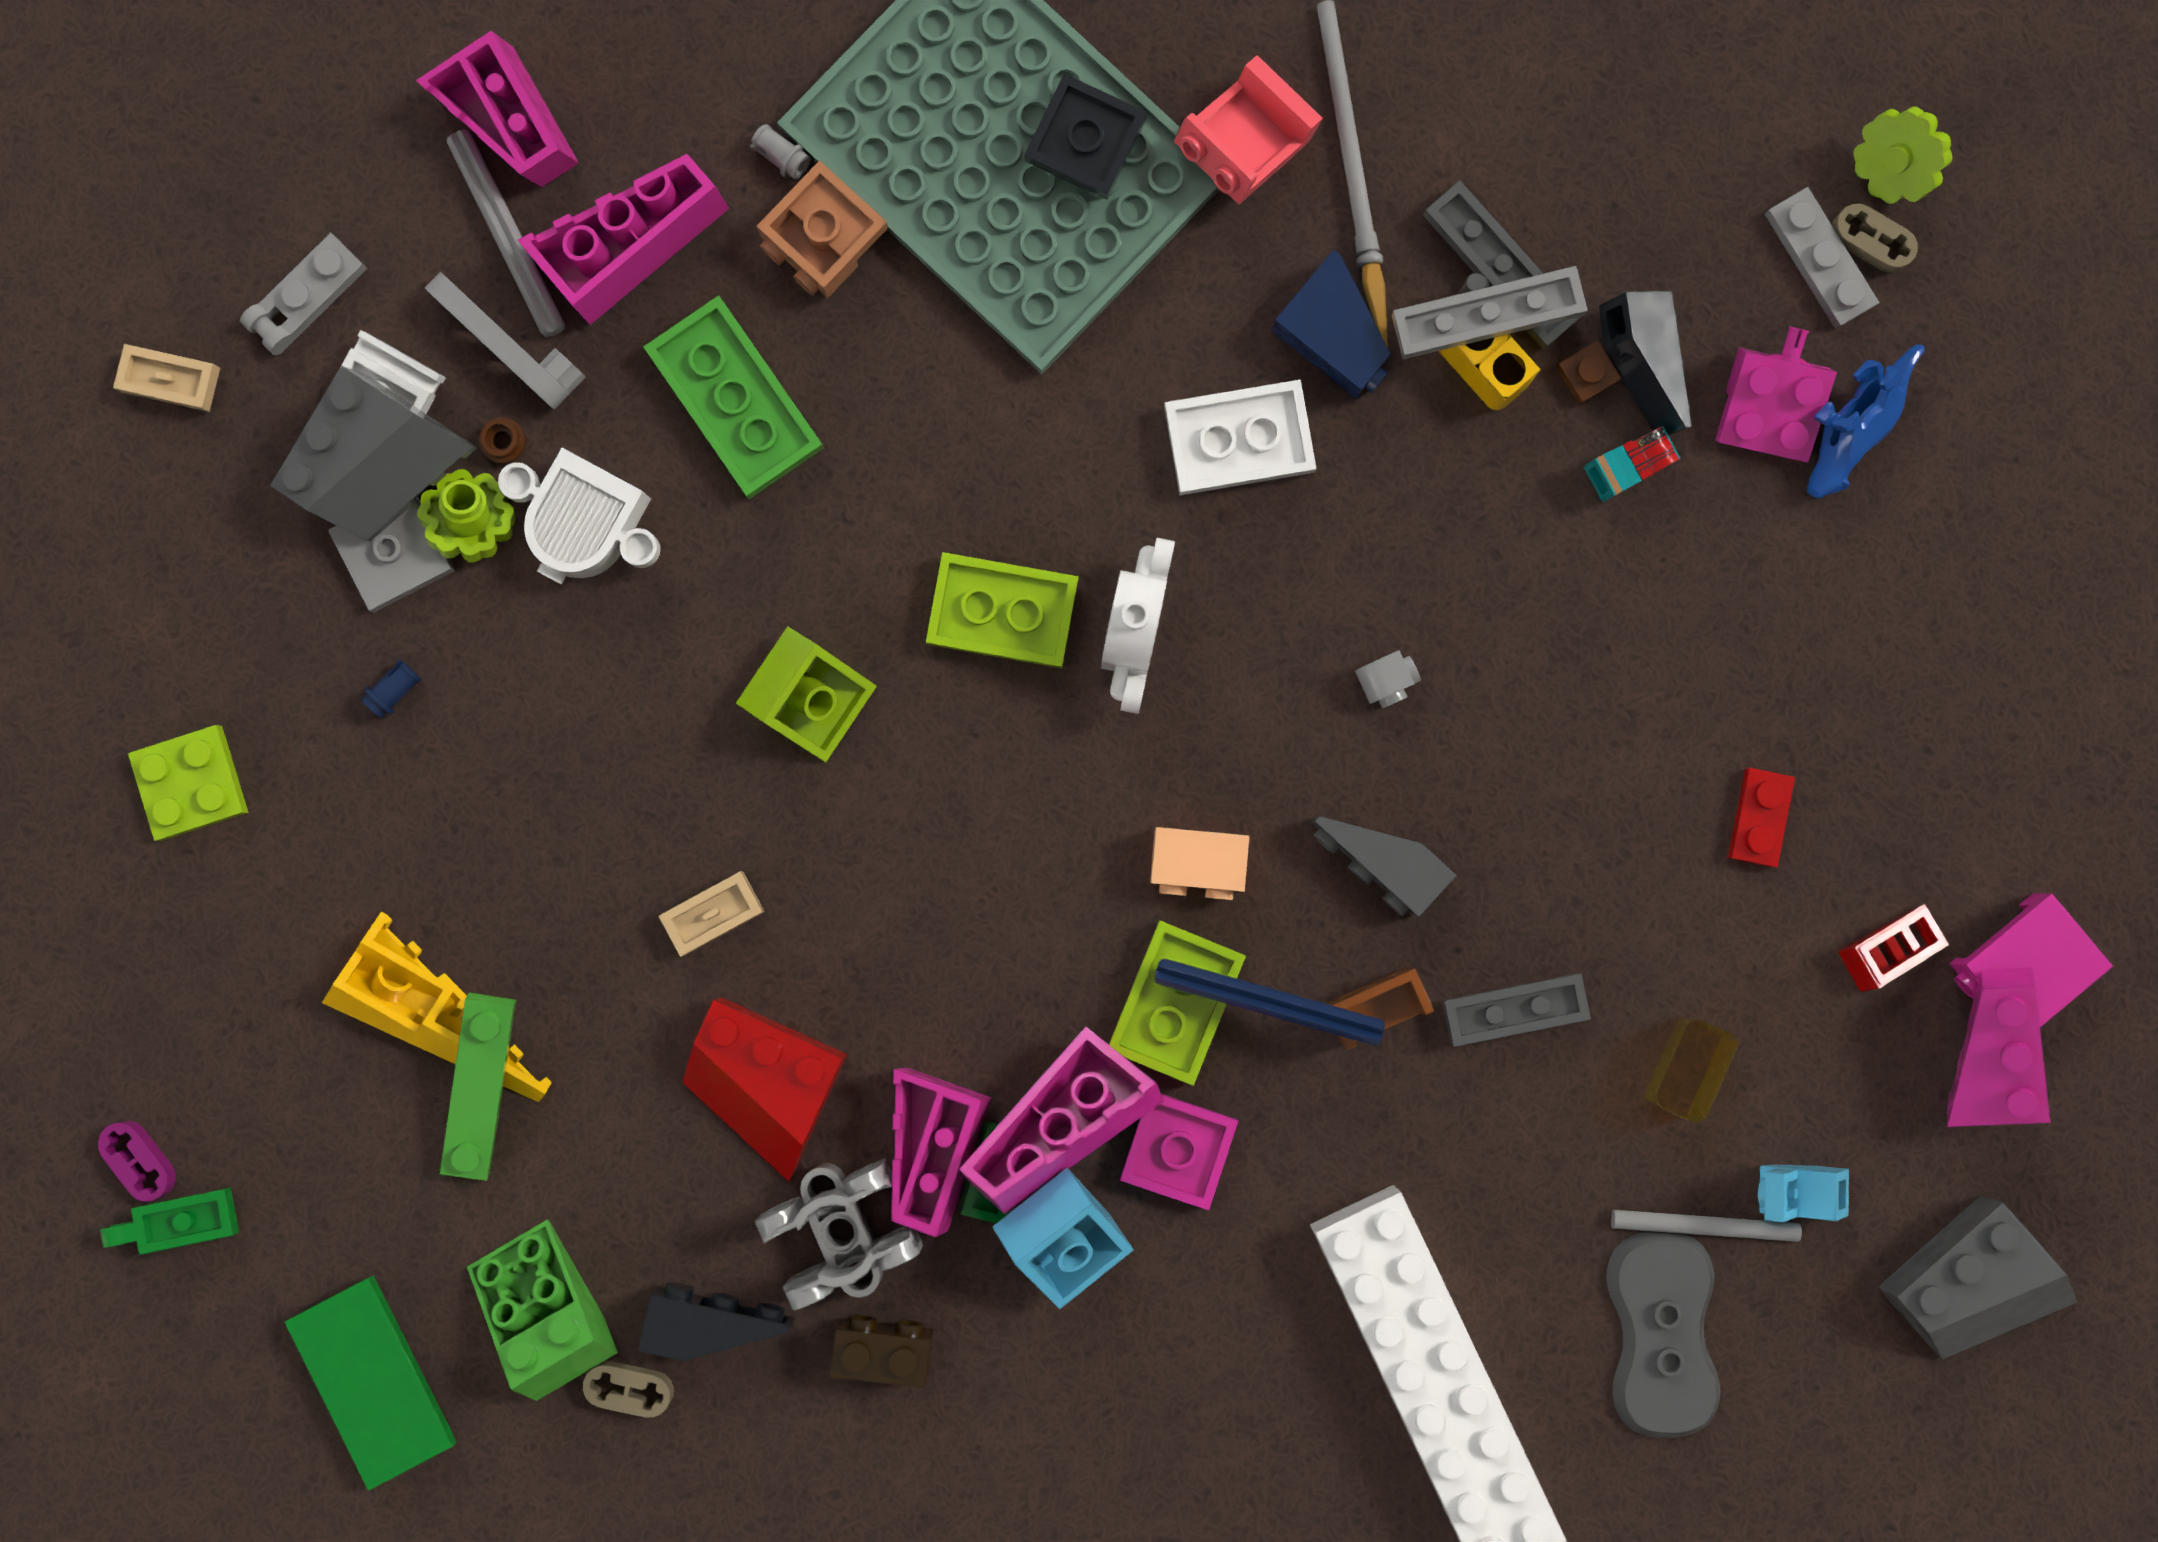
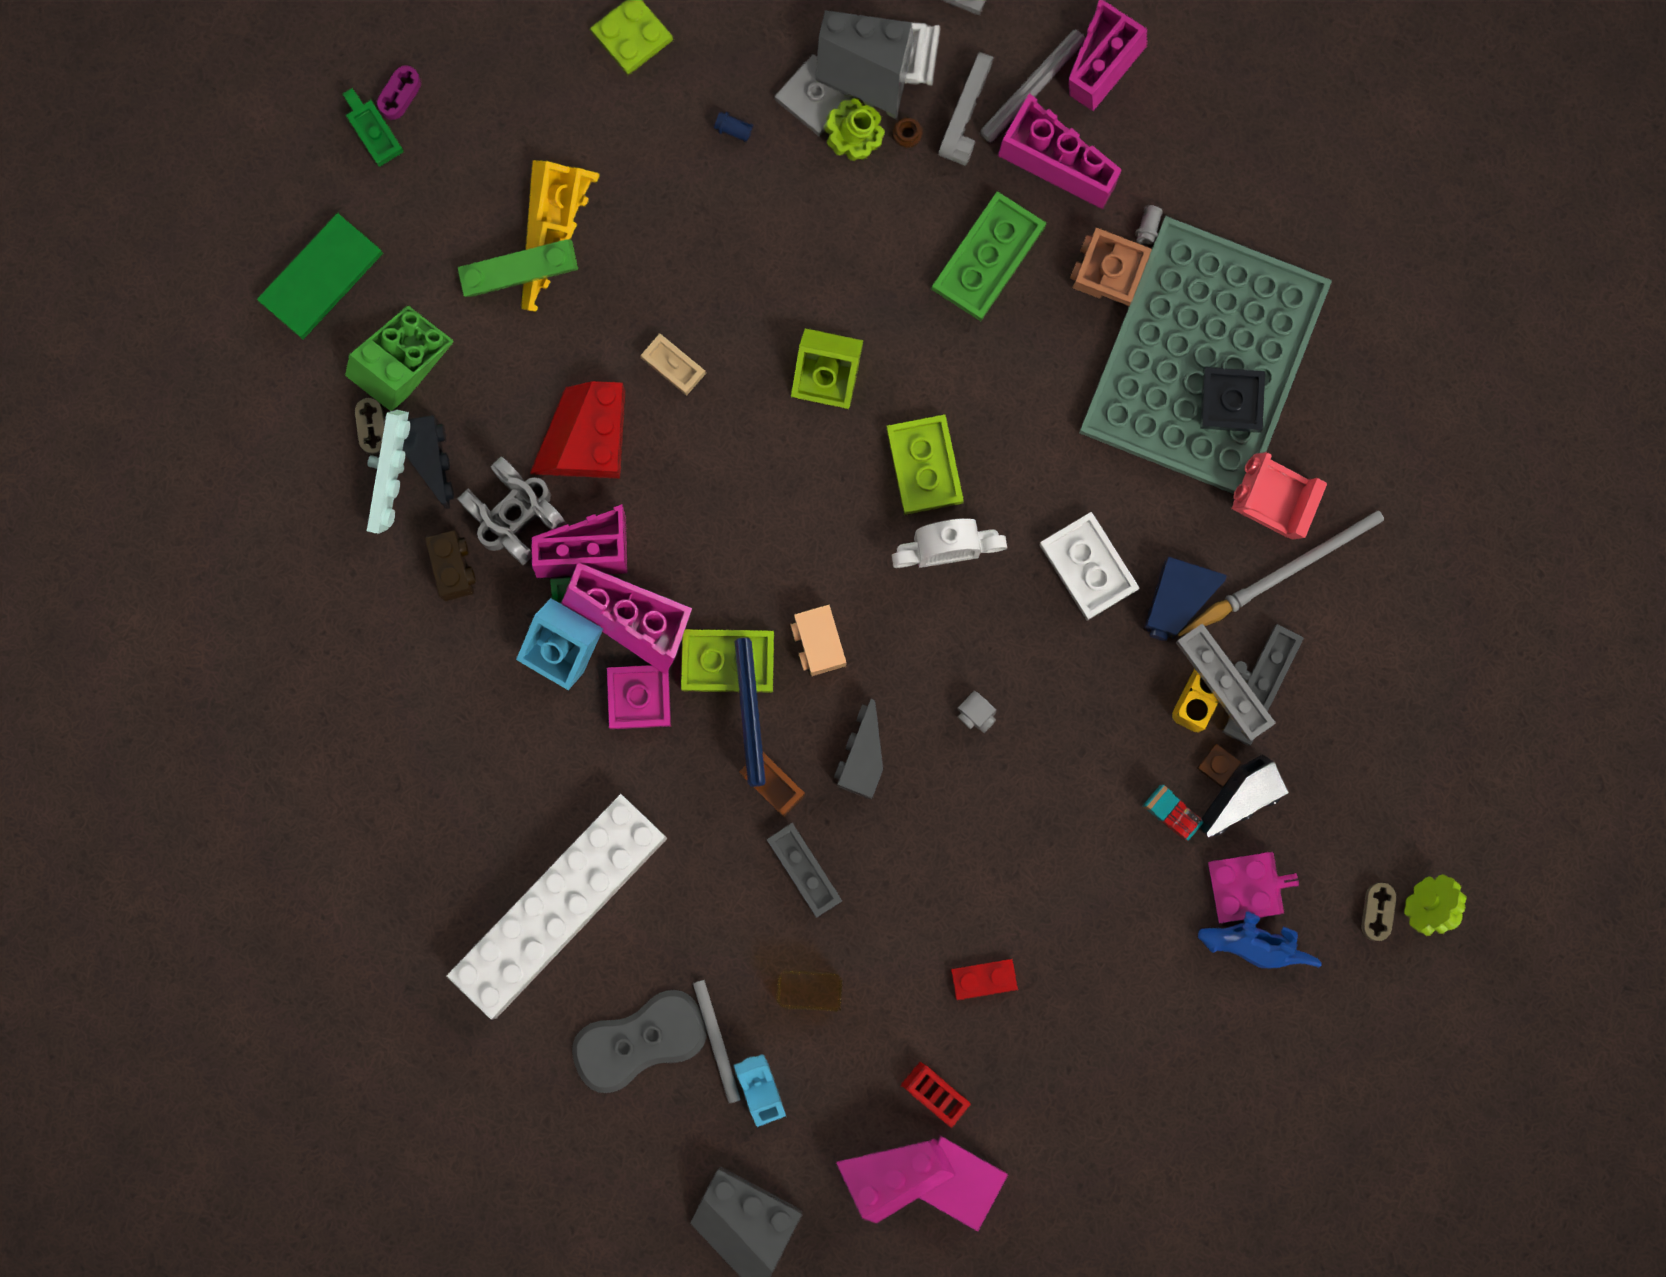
camera: 65 degrees right, 5 degrees down
(580, 517) = (879, 195): white piece -> none
(697, 1387) = (388, 467): none -> light aqua plate
(1821, 258) = (1352, 883): light grey plate -> none

